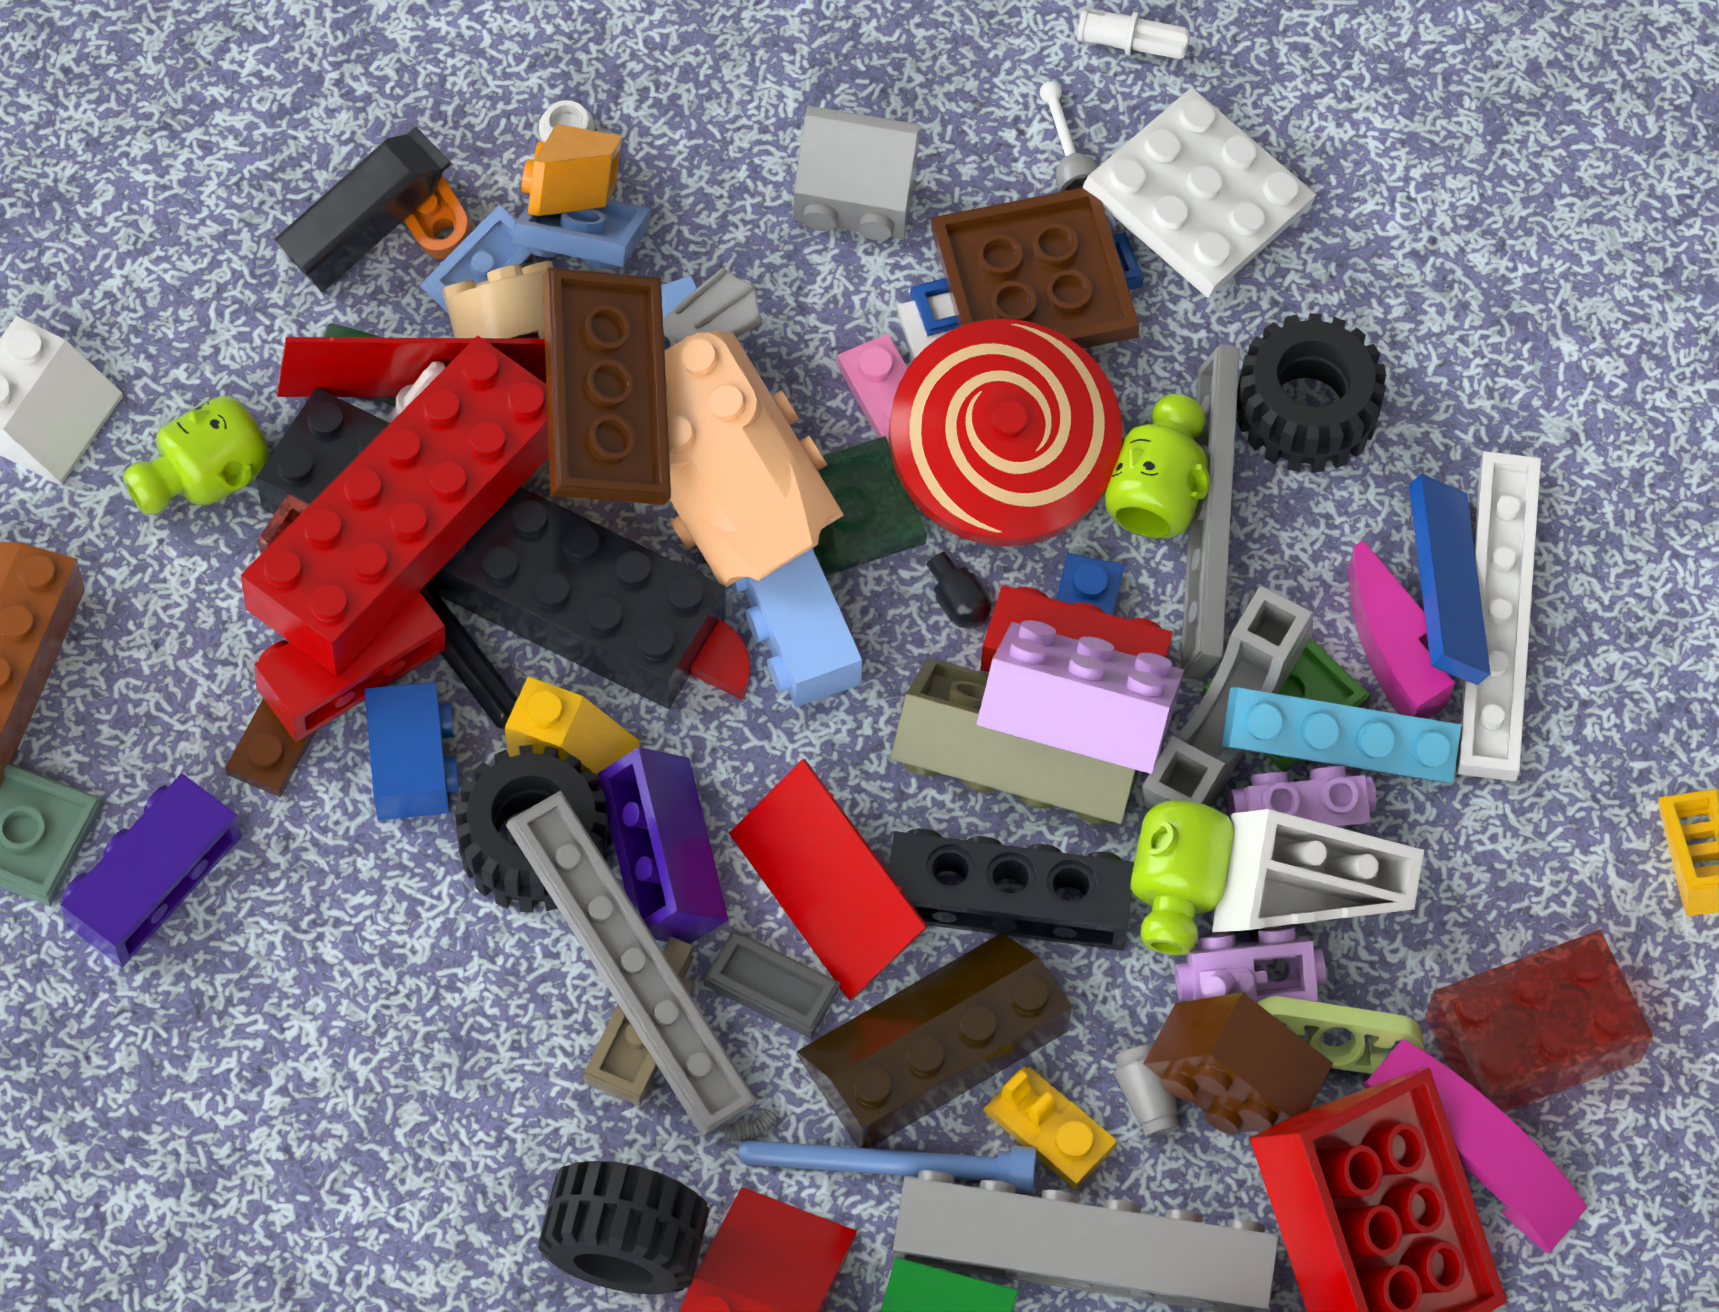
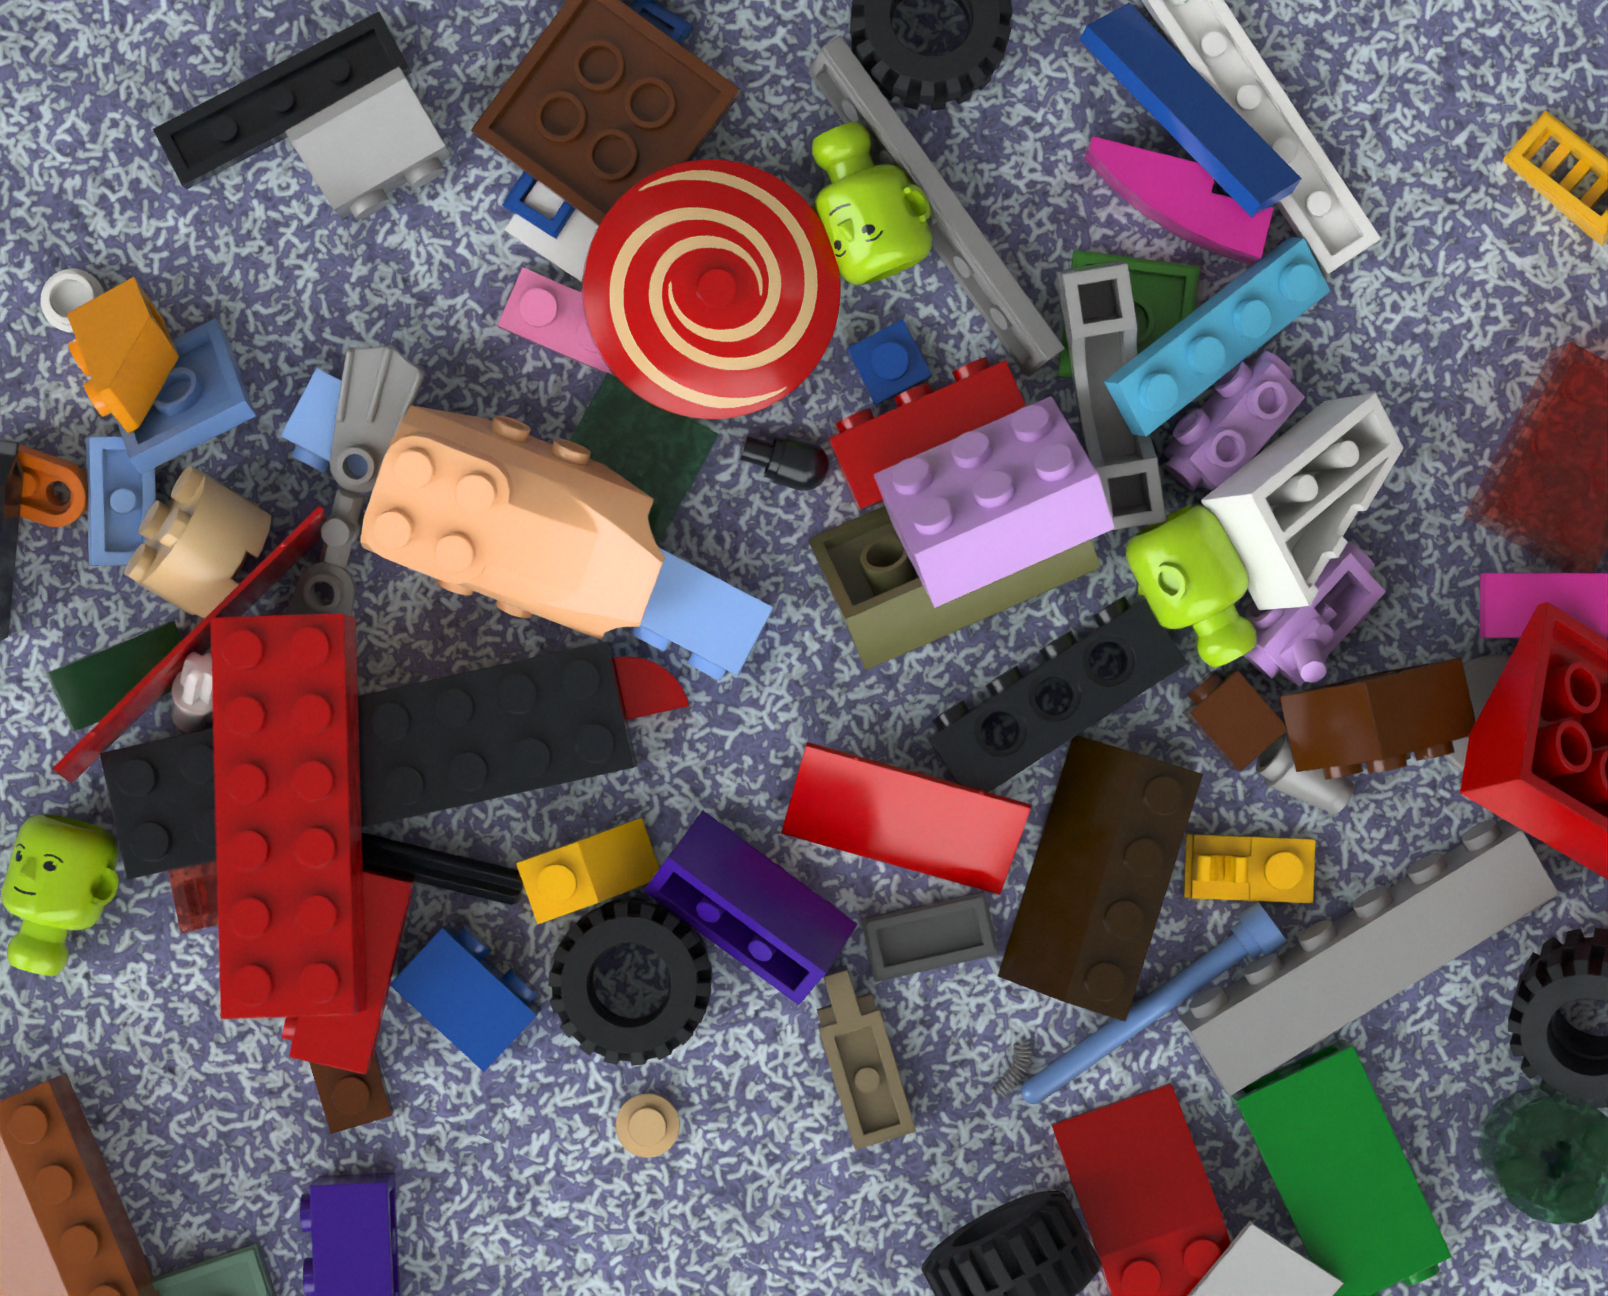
camera: 40 degrees left, 25 degrees up
(450, 943) = (647, 1125): none -> tan plate
(606, 386) = (364, 573): reddish brown tile -> none
(631, 963) = (816, 1037): light grey tile -> none
(779, 106) = (275, 100): none -> black plate
(1128, 1004) = (1233, 718): none -> reddish brown brick
(1351, 1056) = (1418, 608): yellowish green beam -> none

